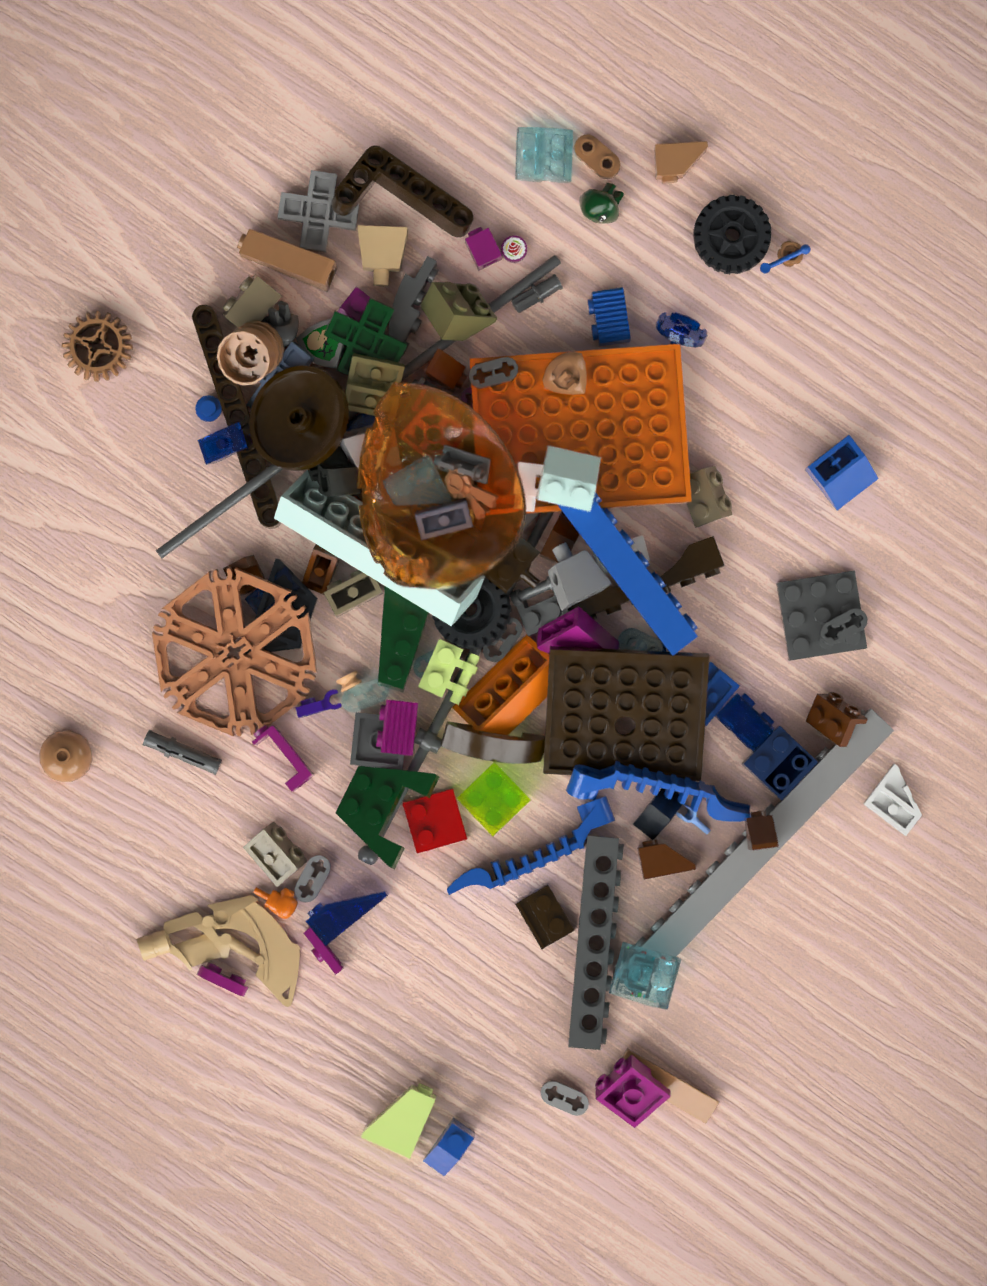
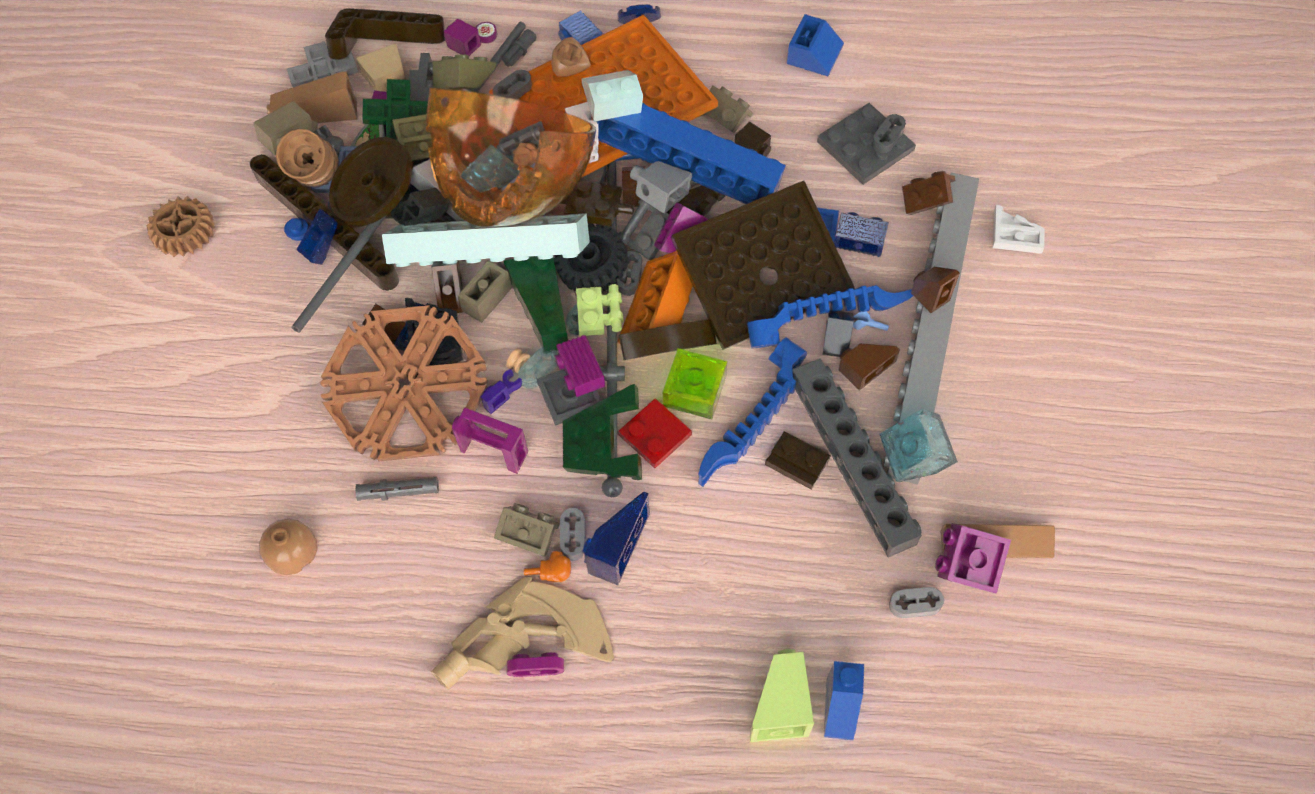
camera: 25 degrees left, 25 degrees down
(242, 304) = (280, 122): none -> dark tan brick
(323, 952) = (616, 588): magenta plate -> none
(779, 763) = (908, 245): dark blue slope -> none

